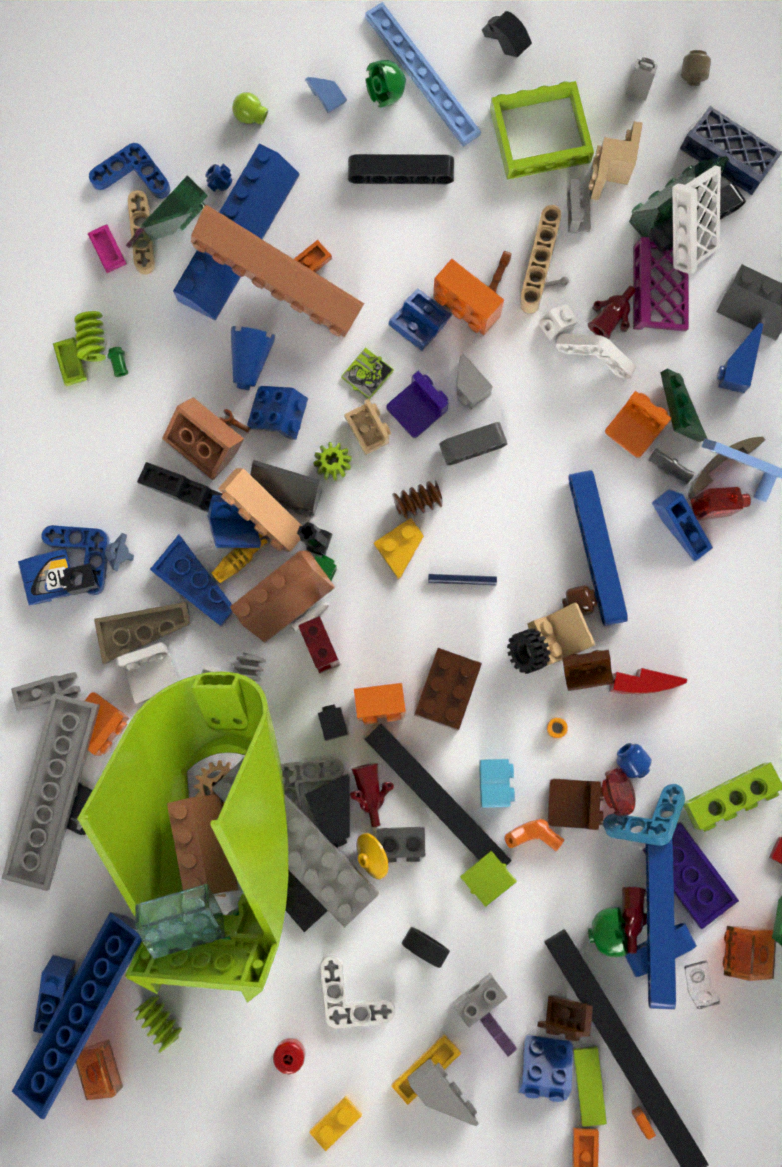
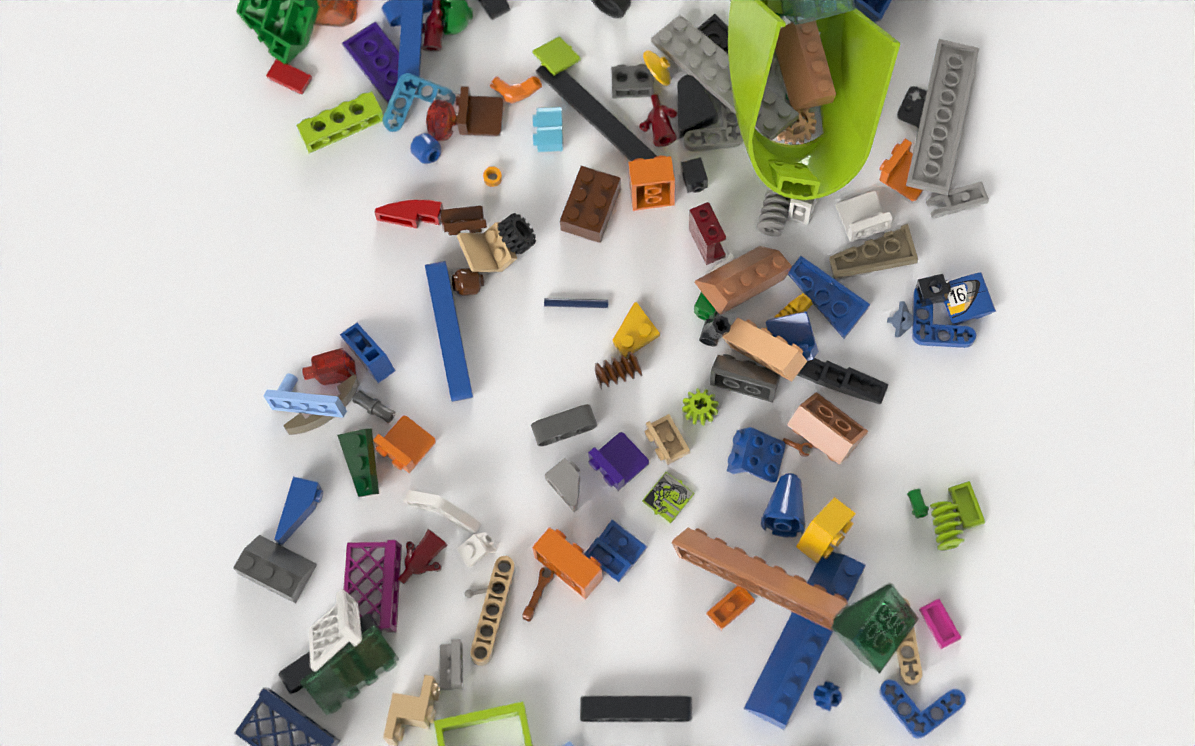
camera: 175 degrees left, 10 degrees down
(209, 322) = (826, 530): none -> yellow brick

